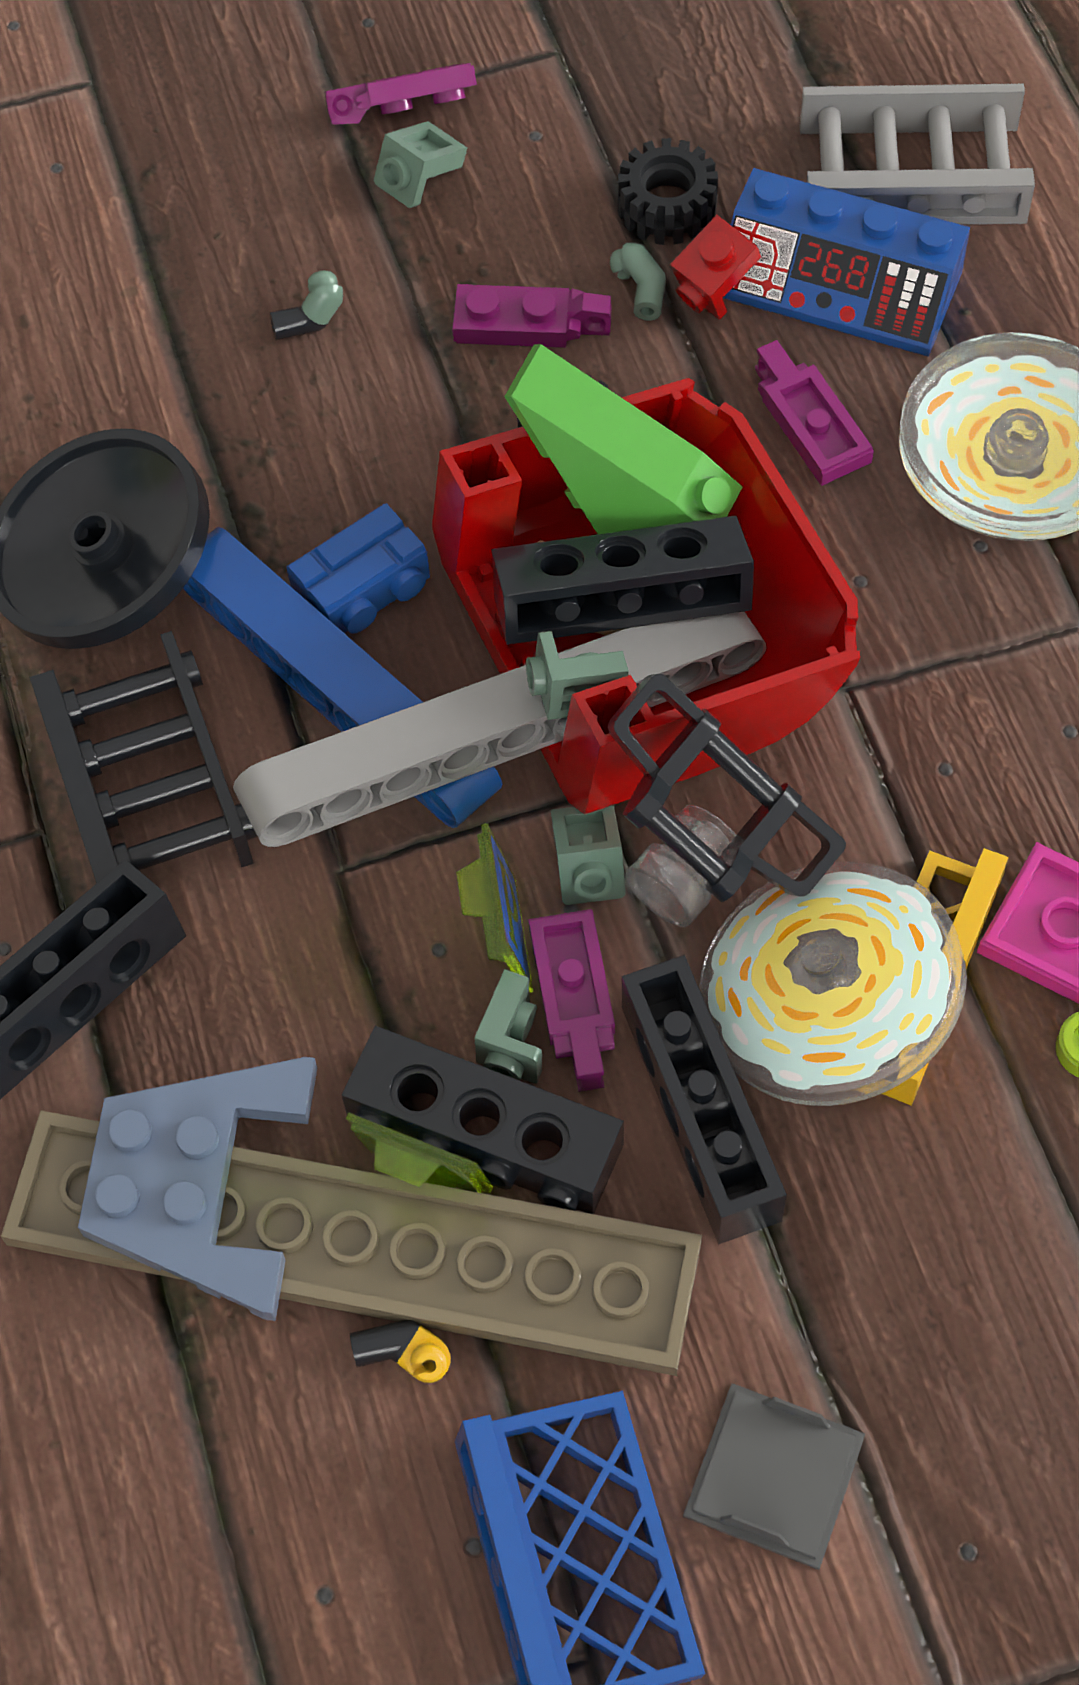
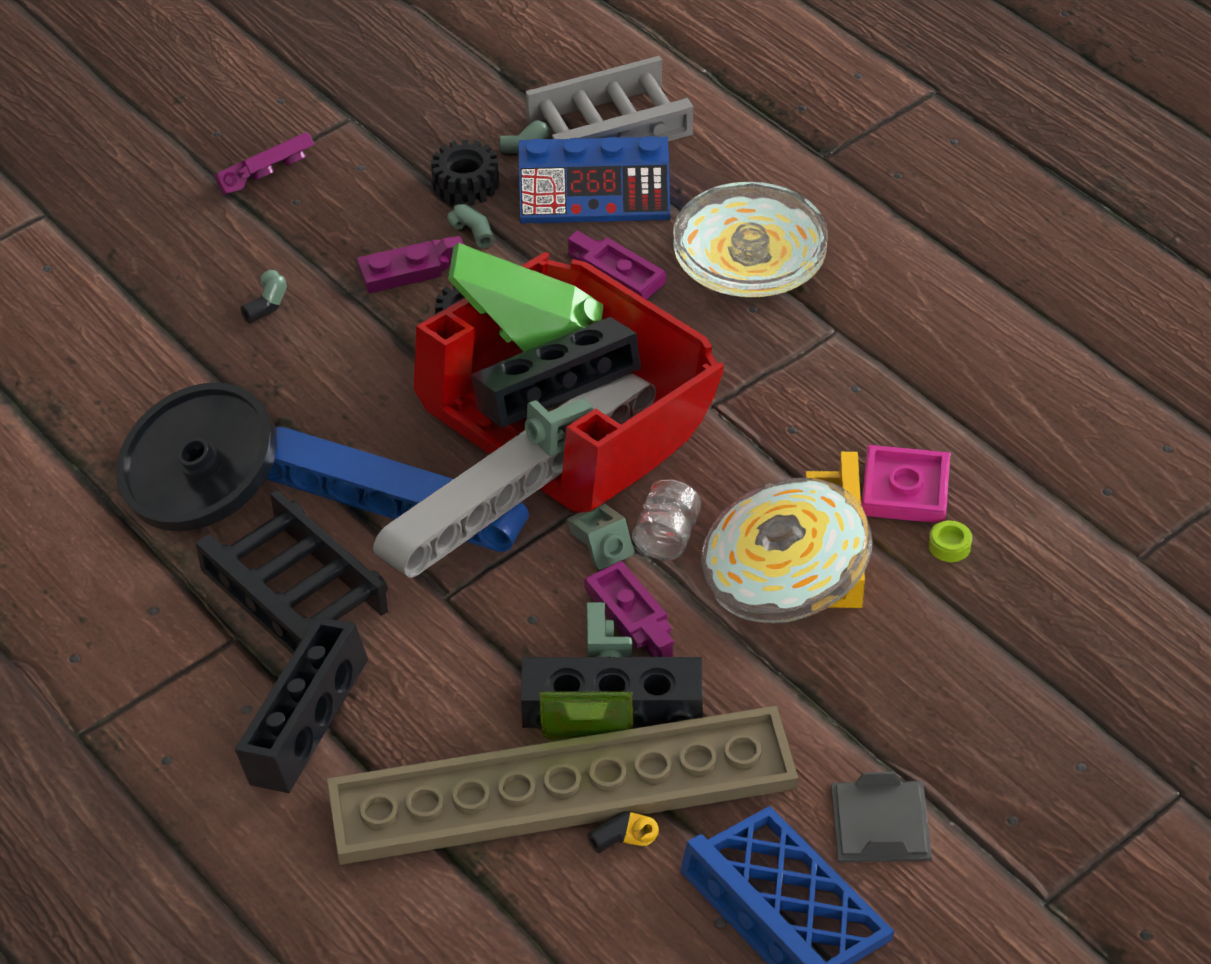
camera: 25 degrees left, 15 degrees down
(165, 1174) = (429, 782): sand blue wing -> none
(362, 570) = (381, 422): blue brick -> none
(412, 157) = (291, 197): sand green bracket -> none
(491, 892) = (576, 585): clear neon green piece -> none
(702, 1100) = (741, 634): black brick -> none
(713, 266) = (518, 202): red bracket -> none
(778, 802) = (639, 467): black bar -> none
(788, 160) = (536, 130): none -> sand green arm

